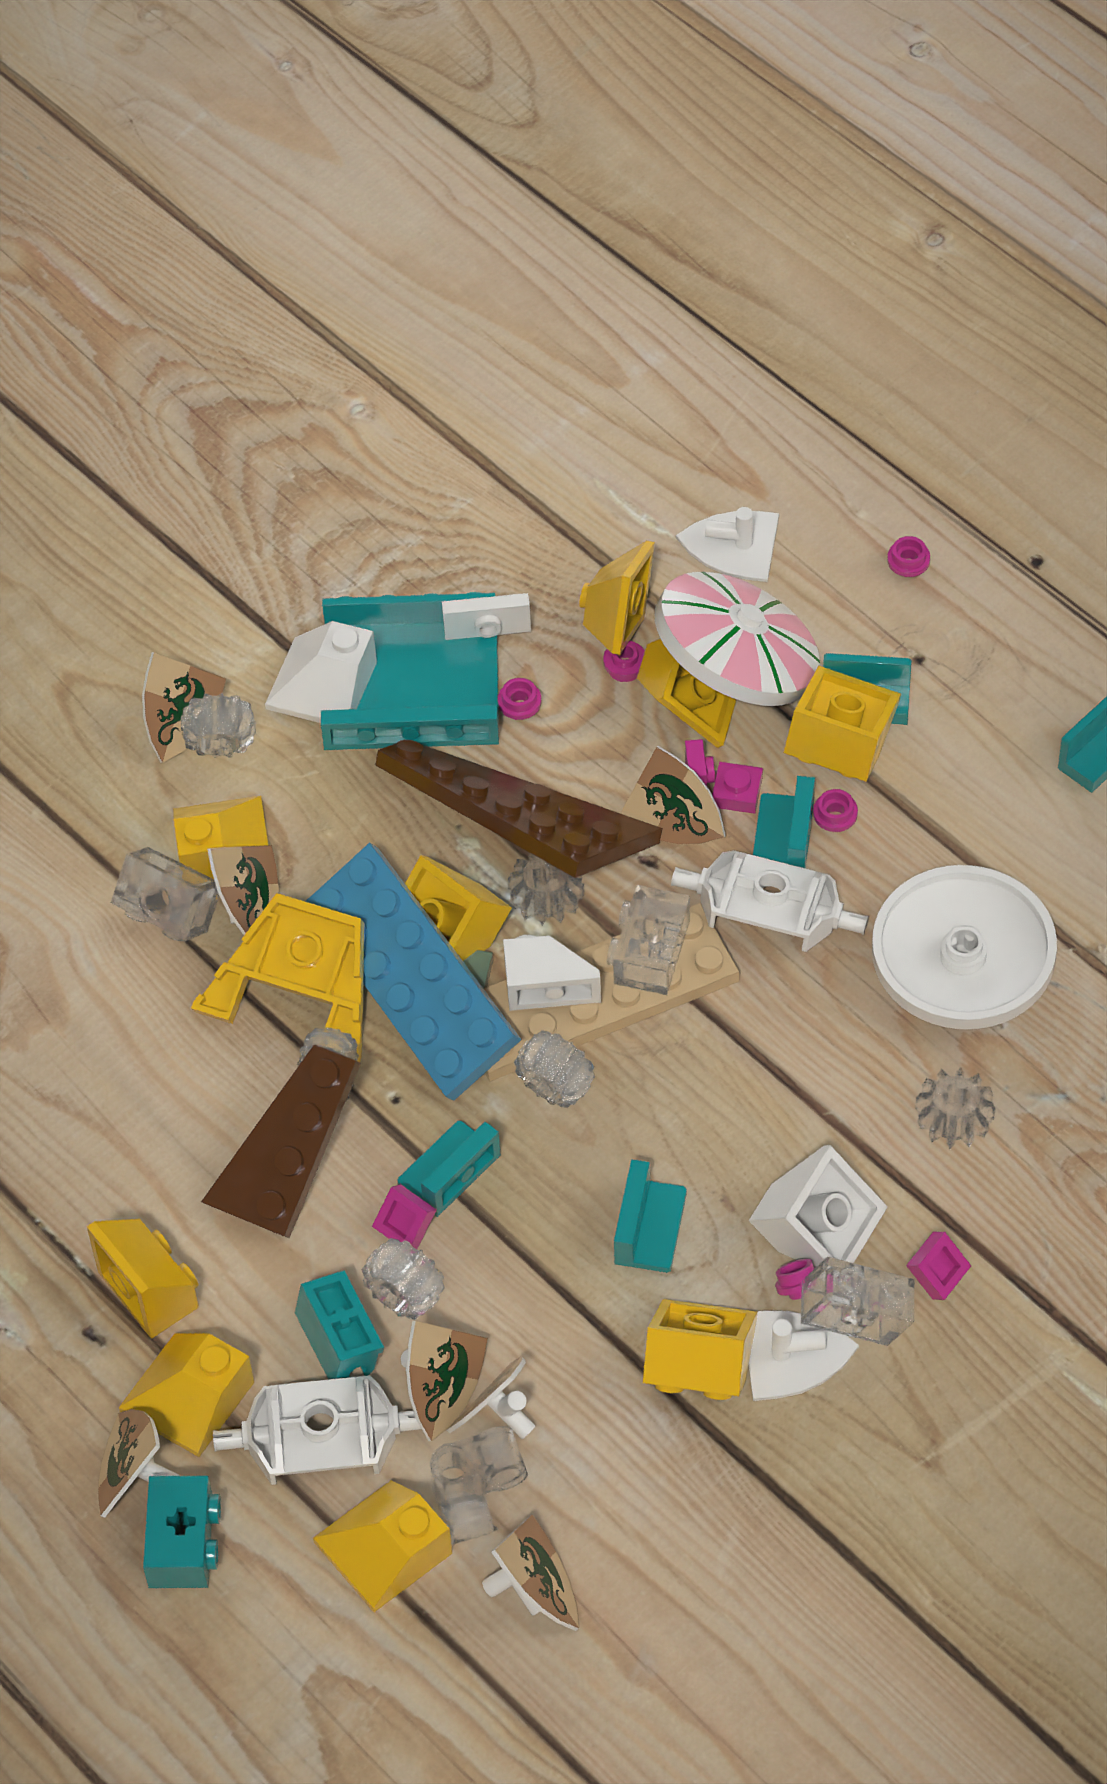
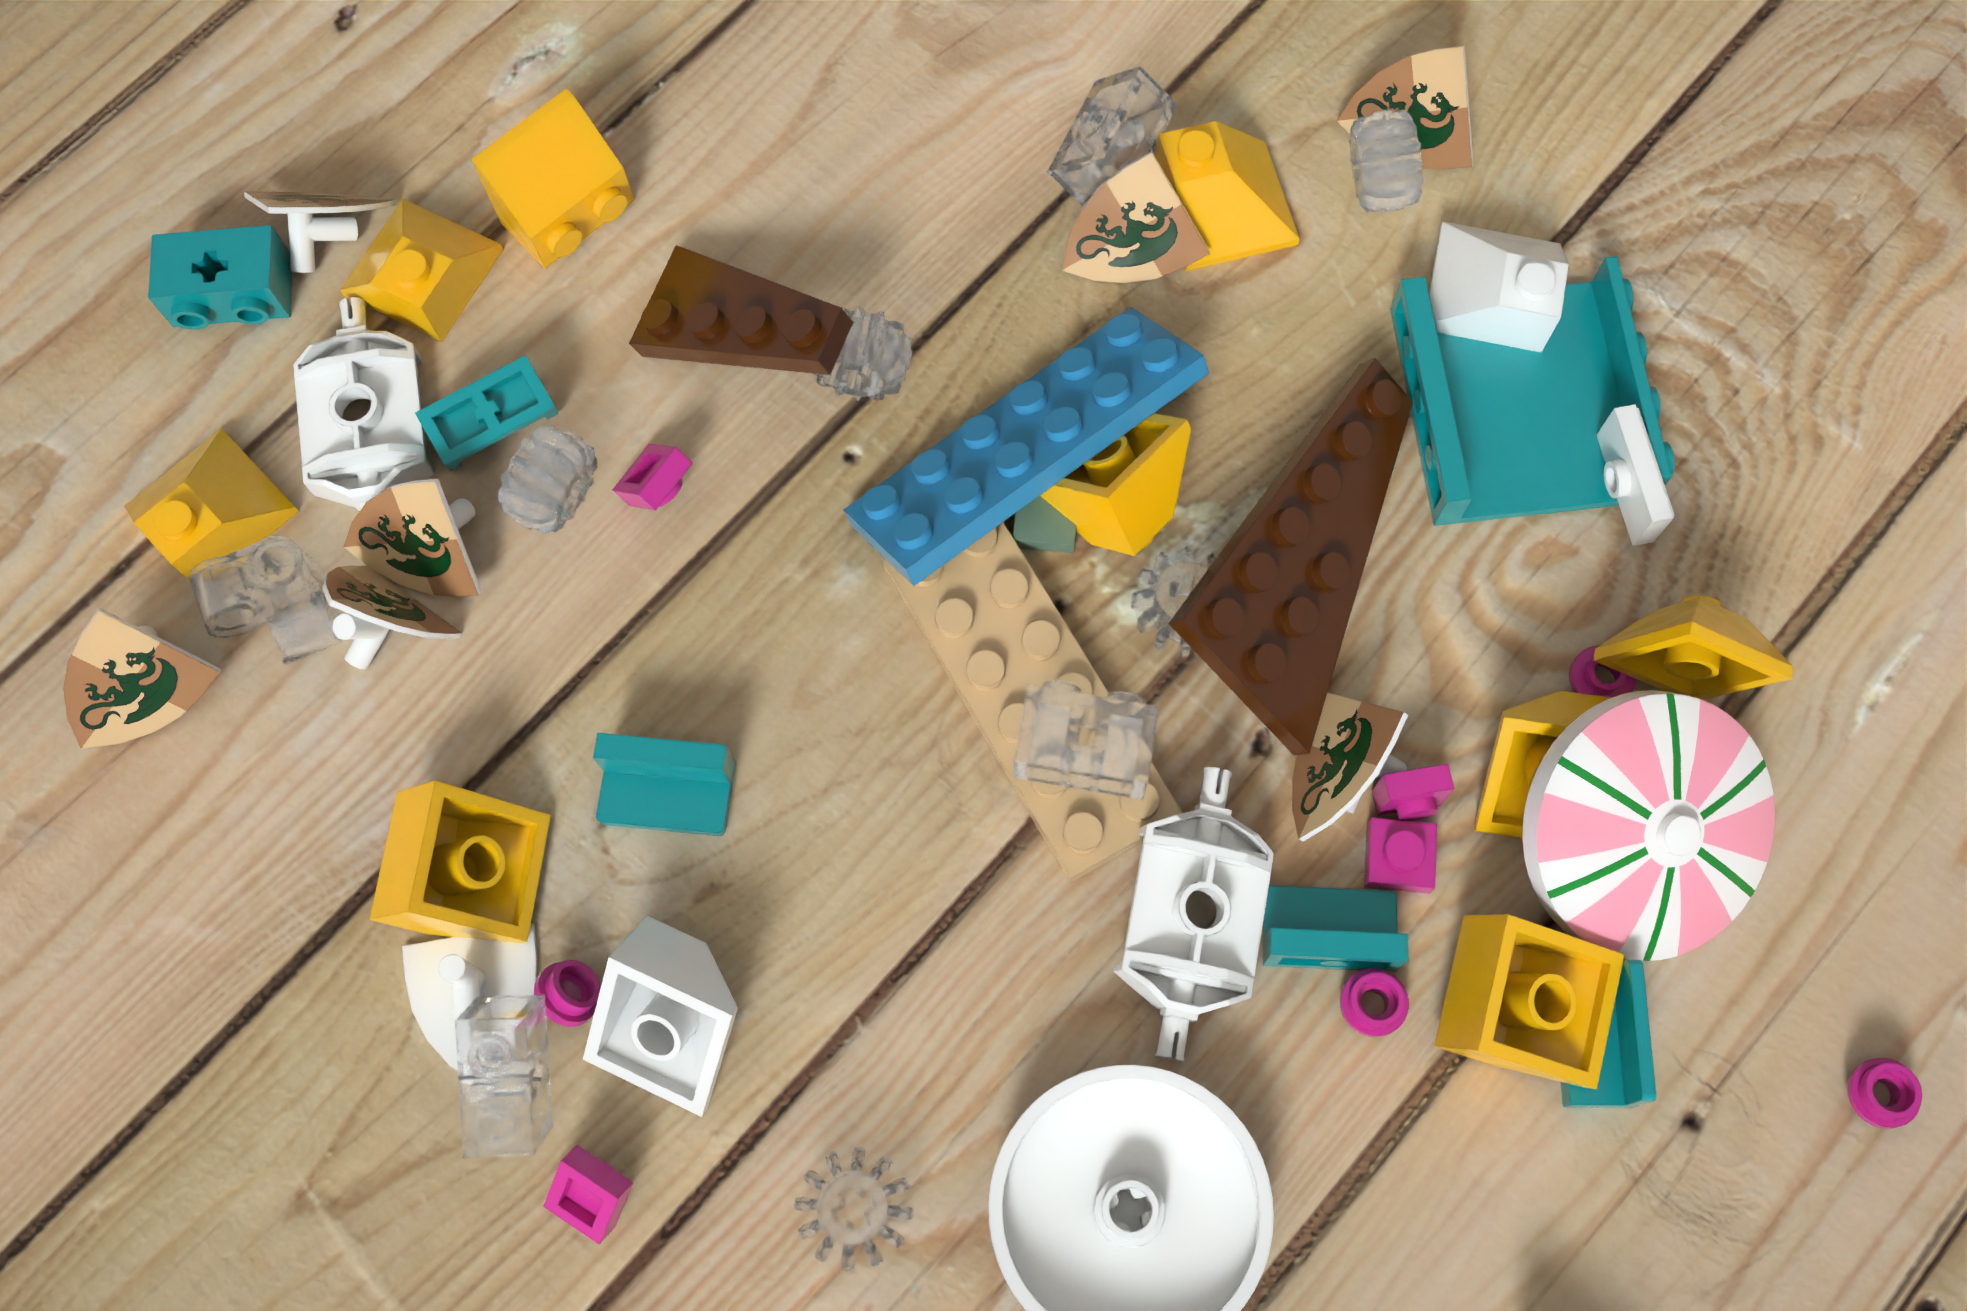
camera: 85 degrees right, 15 degrees up
(301, 952) = (1030, 311): yellow wing -> none
(452, 1164) = (742, 527): teal panel -> none
(516, 690) = (1514, 526): dark pink plate -> none
(547, 974) = (1017, 600): white slope -> none
(554, 1069) = (872, 634): clear gear -> none
(734, 543) = (1860, 822): white shield -> none

